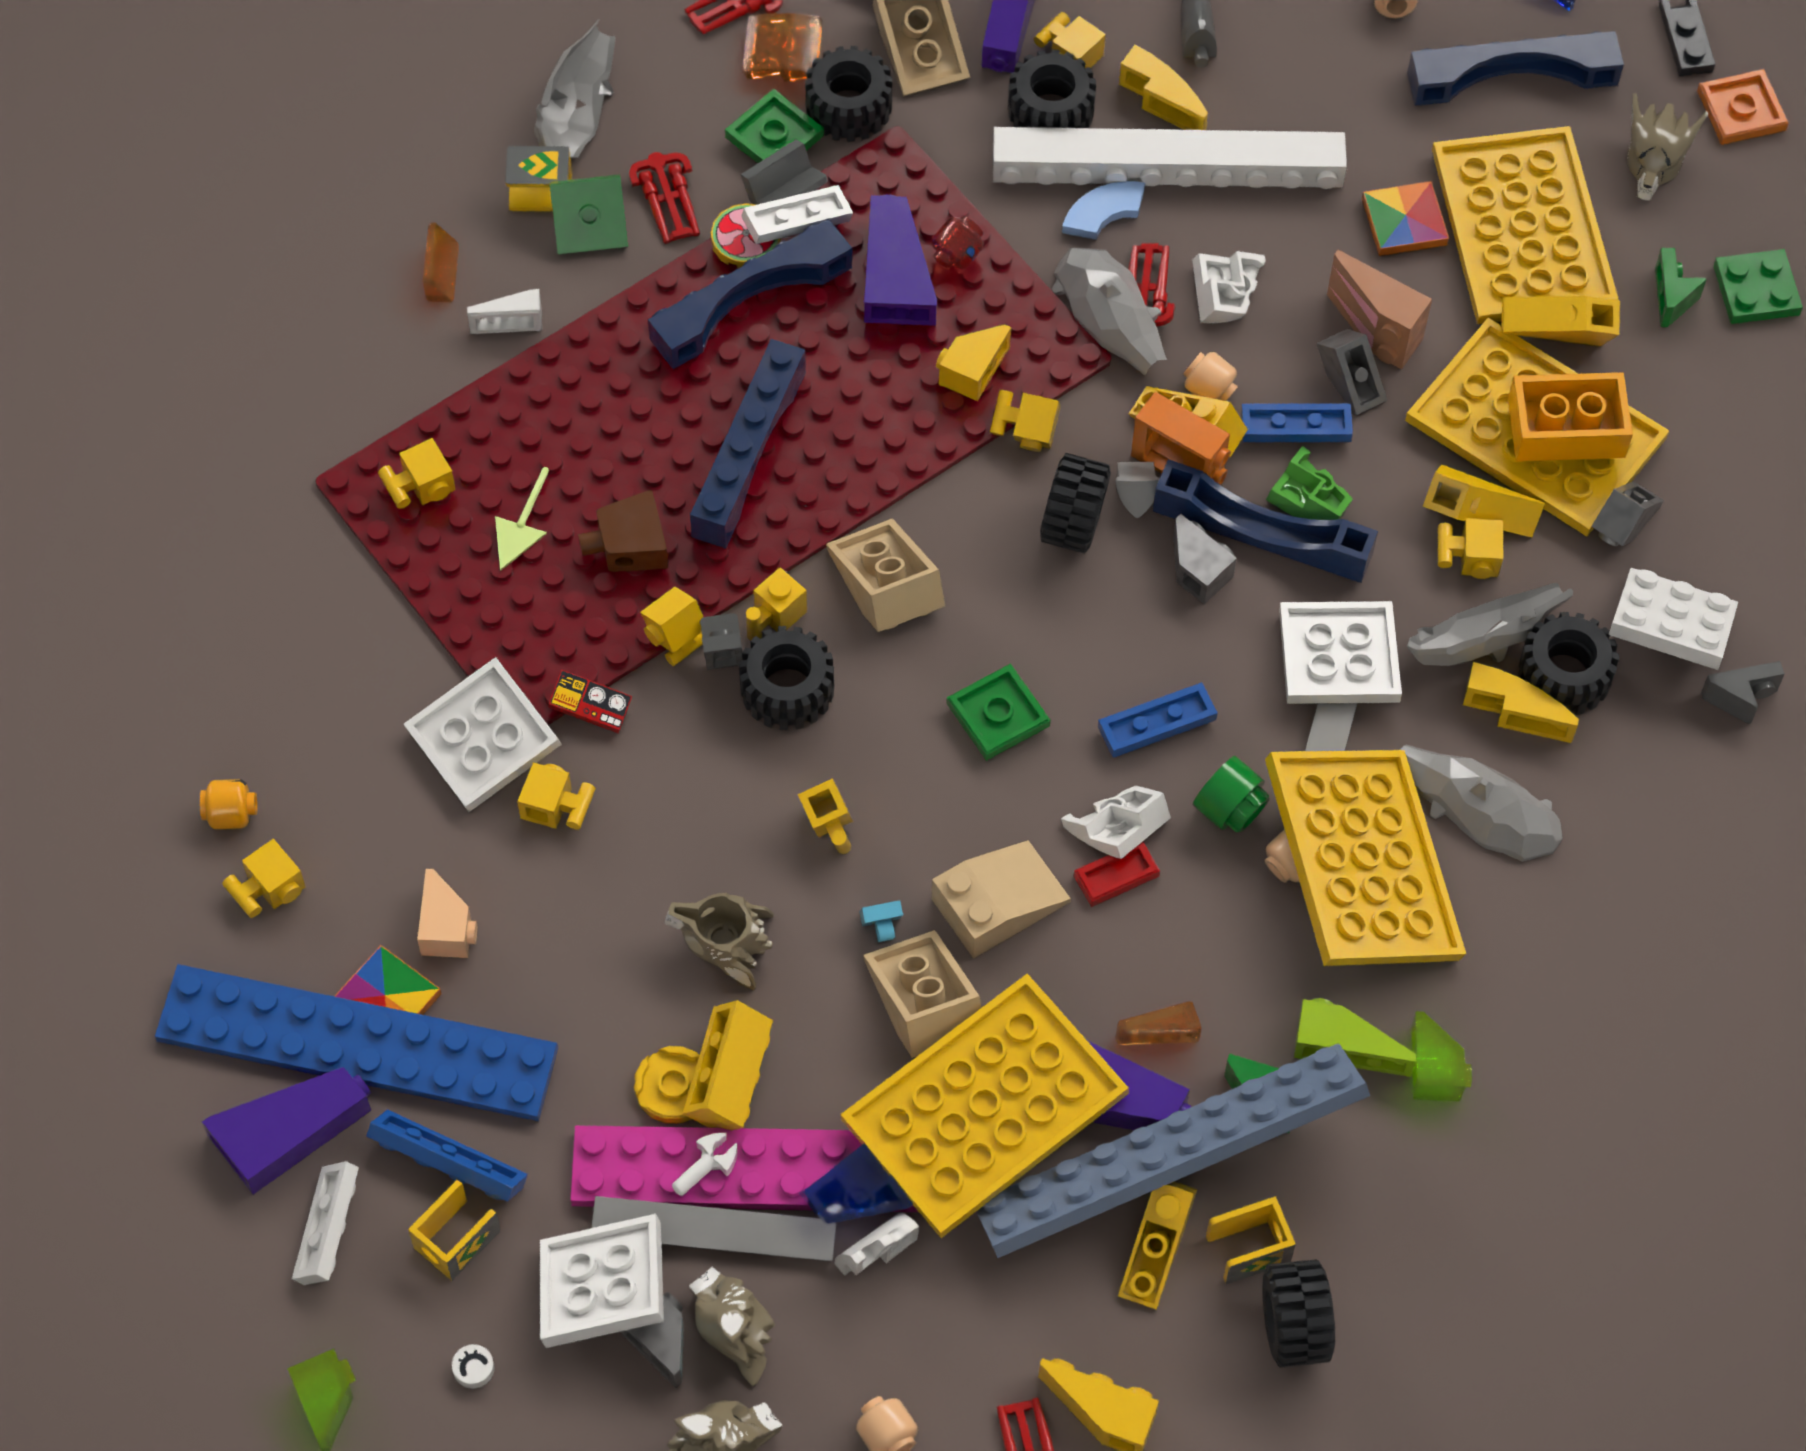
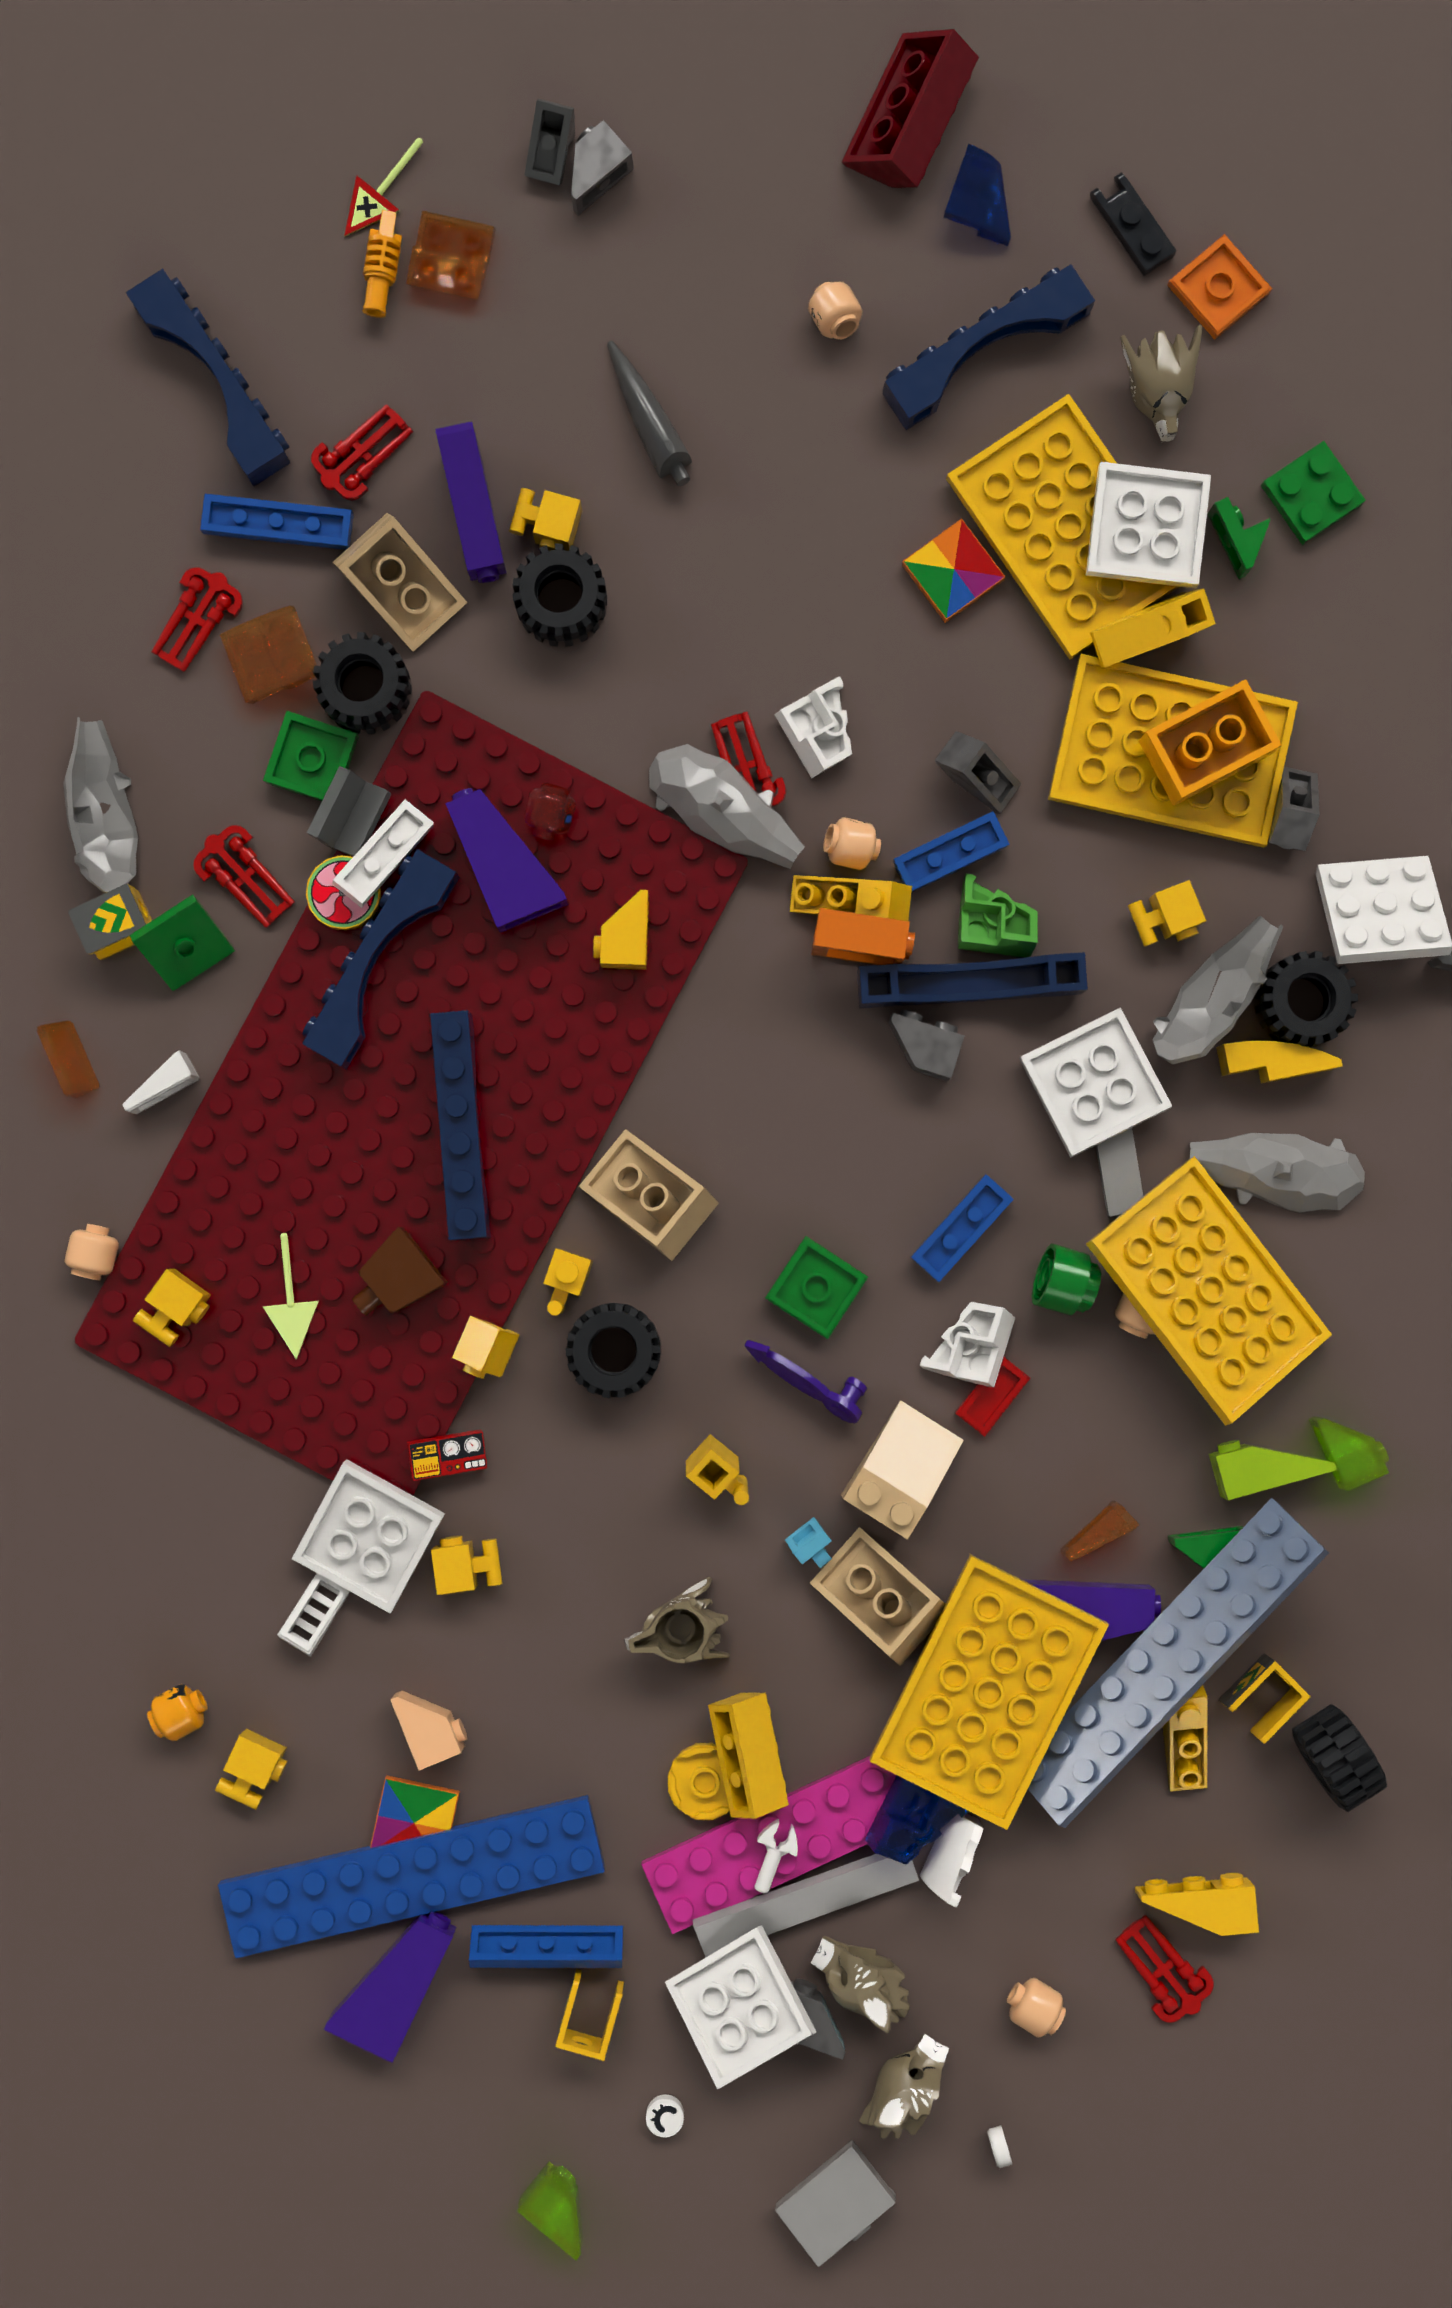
camera: 30 degrees left, 25 degrees up
(325, 1223) = (476, 2057): white plate -> none
(372, 414) = (91, 1252): none -> light nougat head
(375, 797) = (299, 1642): none -> white slope
(721, 641) = (540, 1349): dark grey slope -> none
(945, 778) = (841, 1405): none -> dark purple brick
(1033, 420) = (710, 969): yellow brick -> none
(1075, 503) = (794, 1051): black tyre -> none
(1103, 206) = (663, 691): light blue tile -> none
(1136, 486) = (834, 990): light grey tile -> none
(1162, 90) = (664, 534): yellow slope -> none
(1169, 157) = (703, 609): white brick -> none
(1379, 307) = (985, 702): nougat slope -> none
(1471, 497) = (1153, 865): yellow slope -> none
(1593, 240) = (1148, 525): none -> white plate

